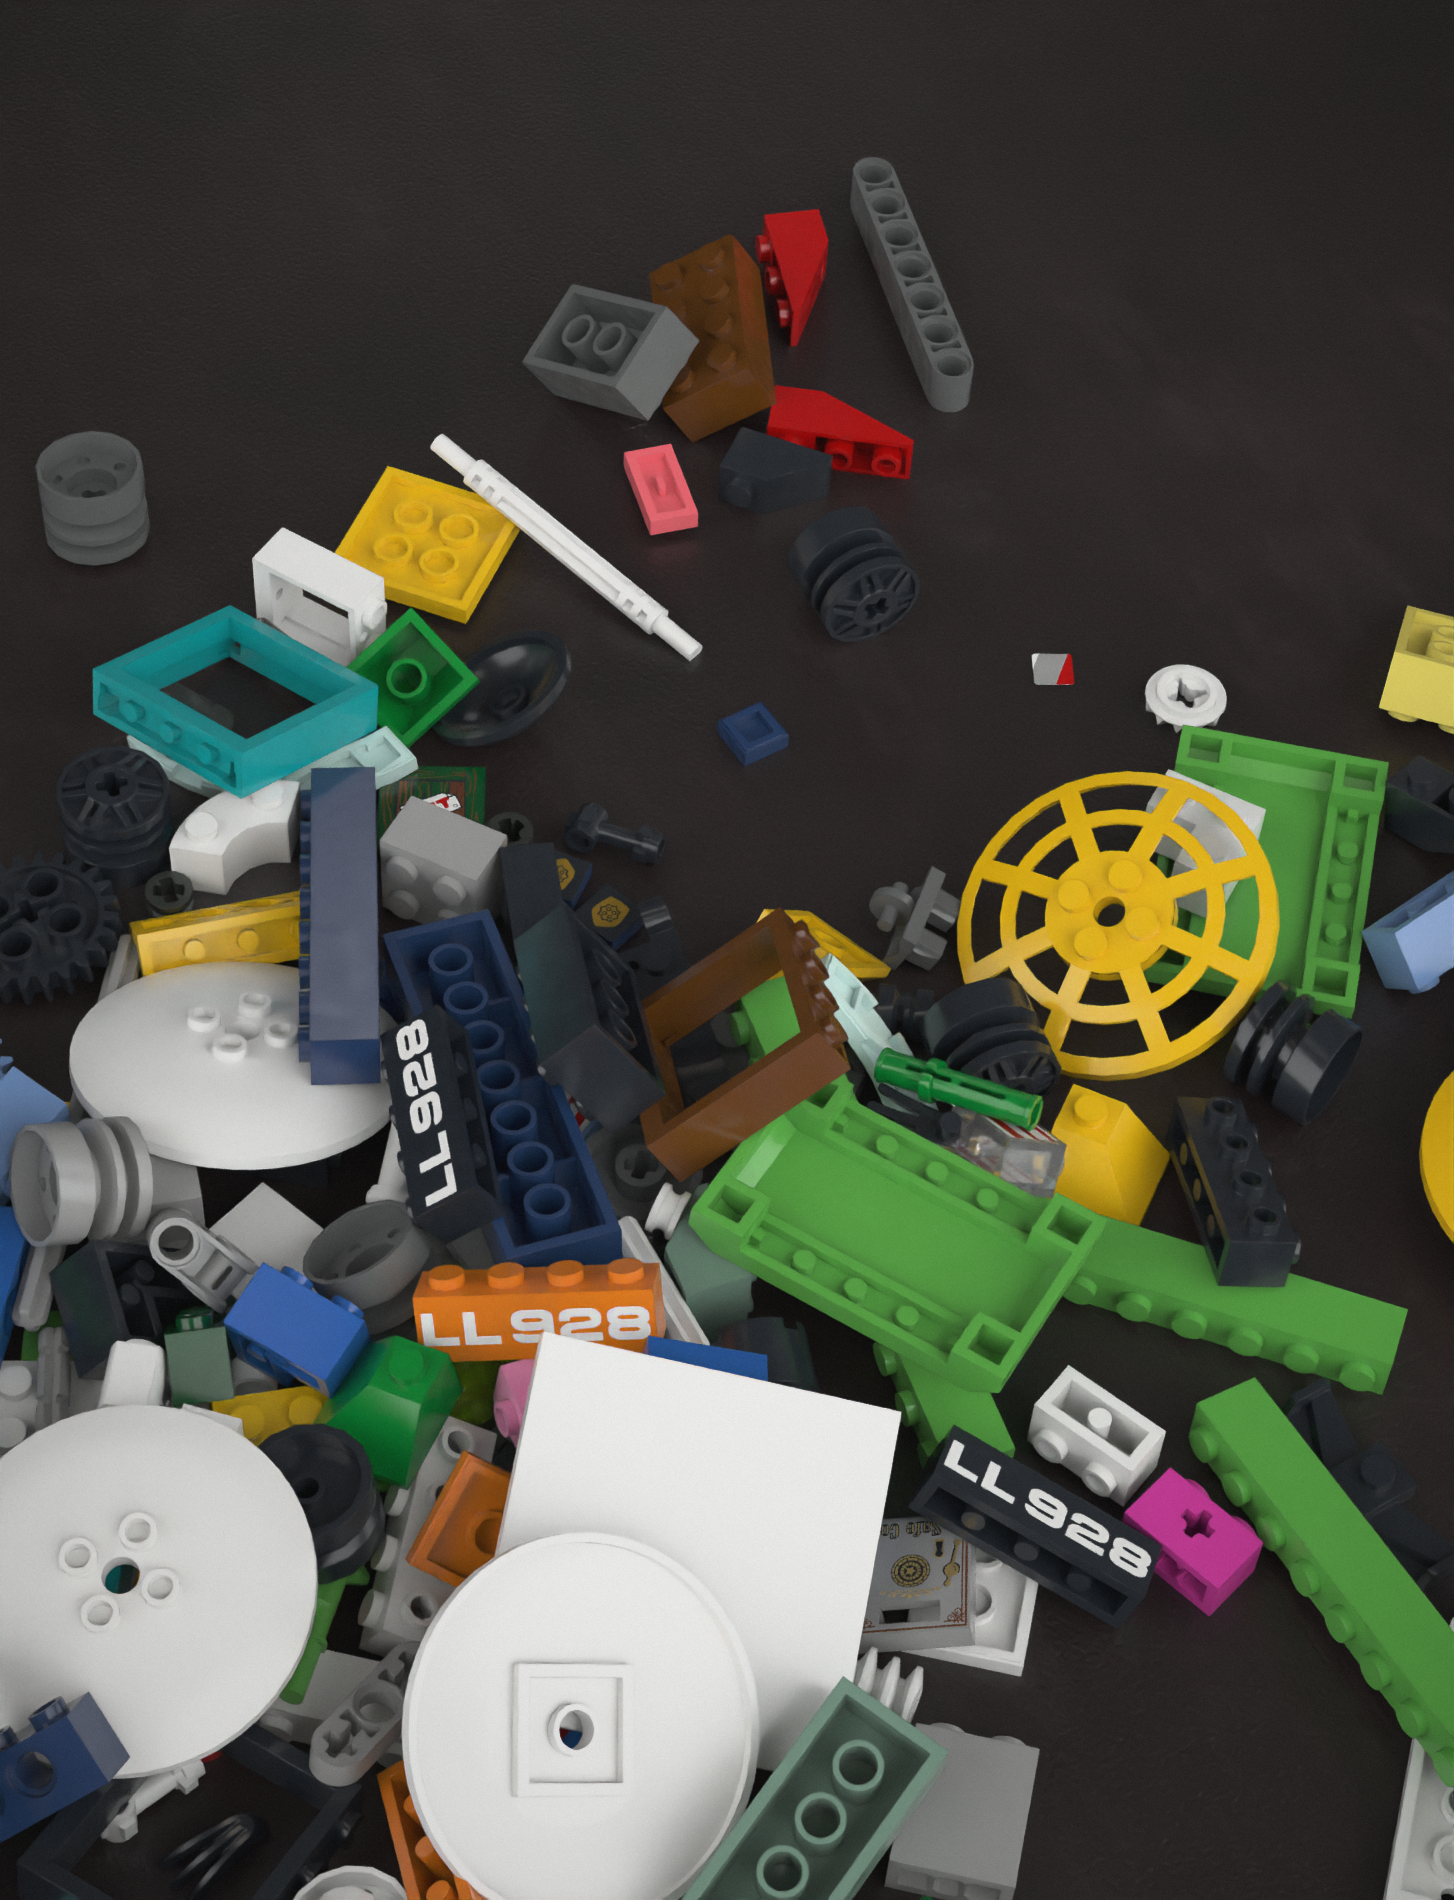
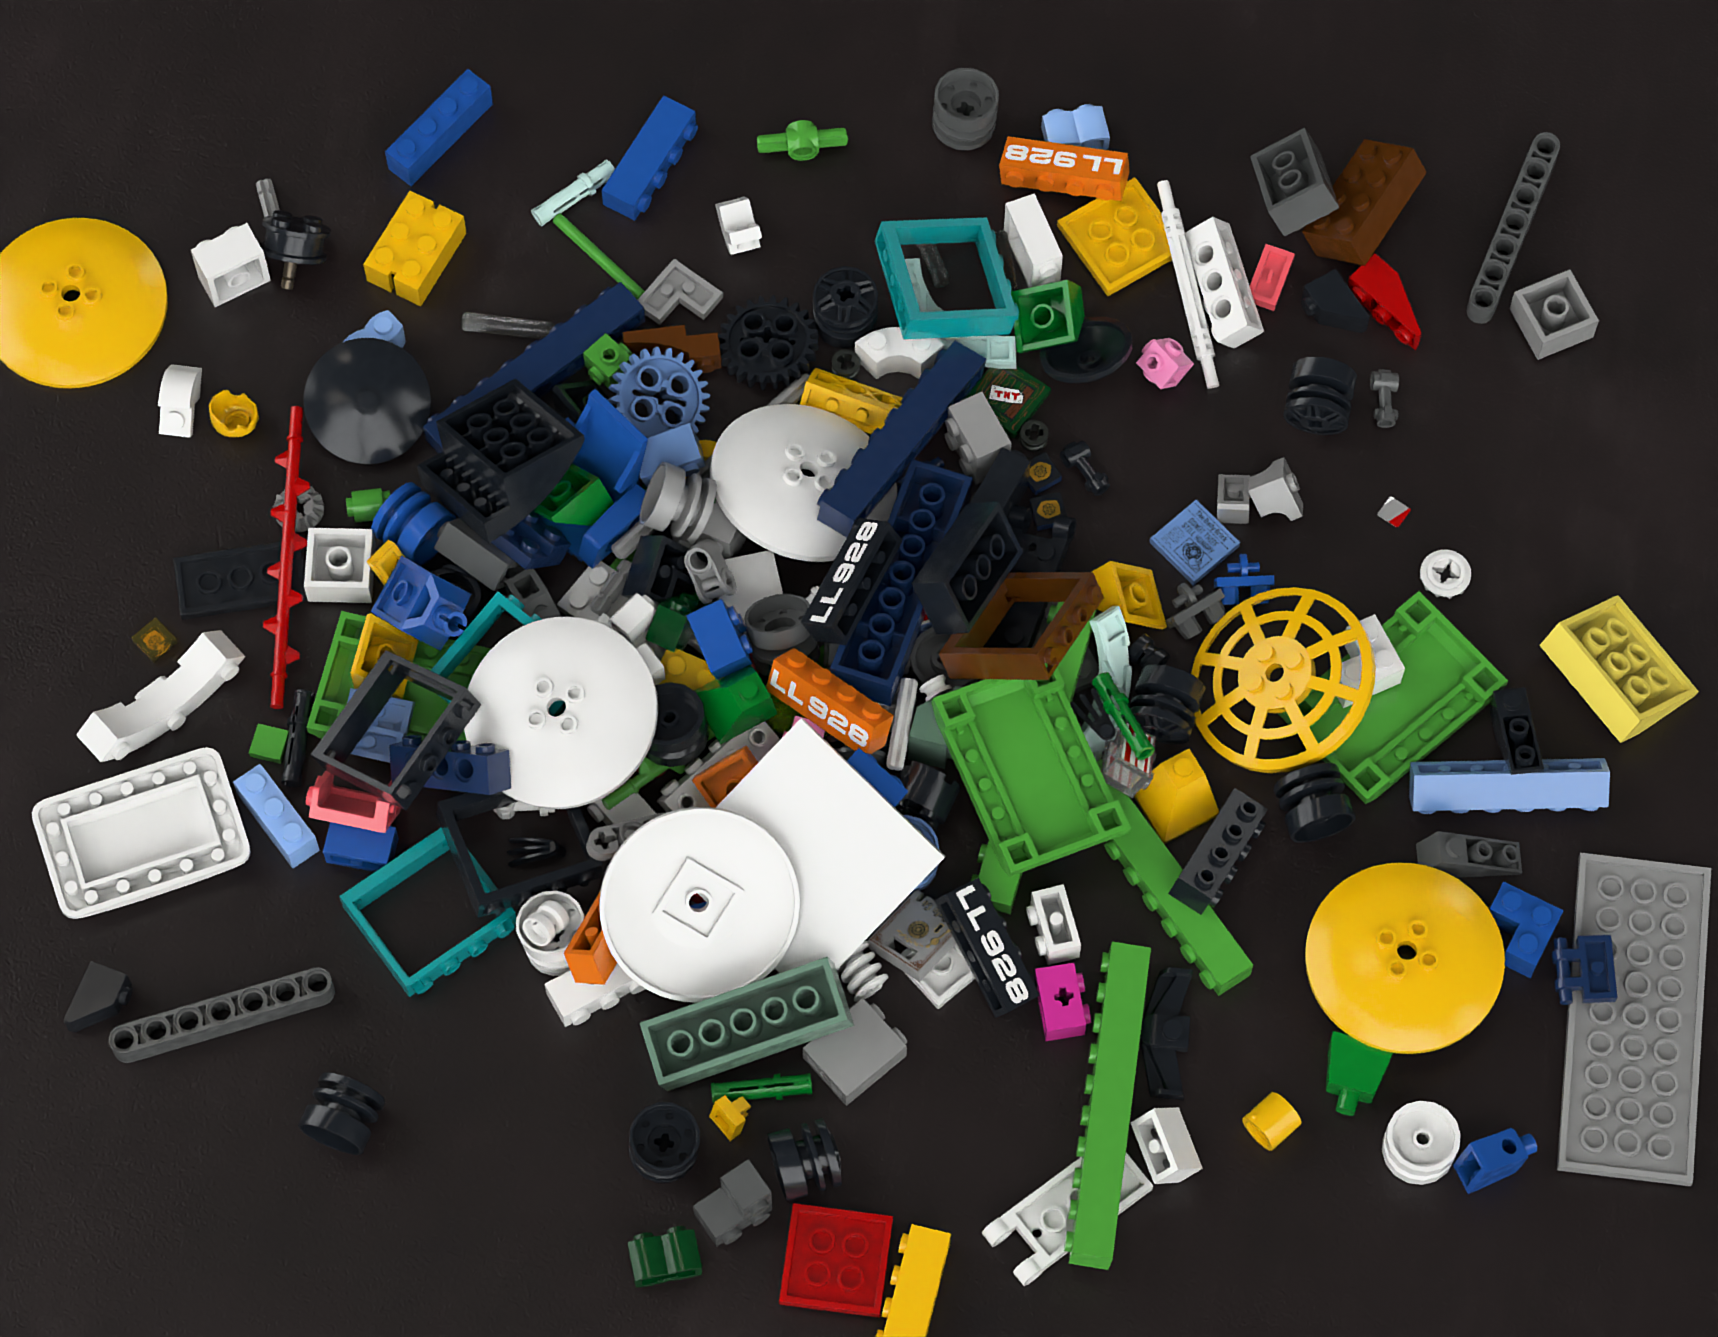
camera: 40 degrees right, 15 degrees up
(262, 458) = (1079, 127): none -> light blue brick
(292, 493) = (1064, 168): none -> orange brick
(631, 650) = (1164, 362): none -> bright pink brick
(675, 551) = (1217, 240): none -> white brick
(752, 733) = (1203, 452): dark blue tile -> none
(796, 262) = (1459, 180): red slope -> none
(836, 844) = (1194, 542): none -> medium blue tile
(852, 759) = (1233, 499): none -> light grey slope
(895, 714) = (1276, 491): none -> light grey brick
(916, 528) = (1385, 383): none -> dark grey bar
(944, 846) = (1230, 585): none -> blue hips
(1049, 341) = (1554, 314): none -> light grey brick

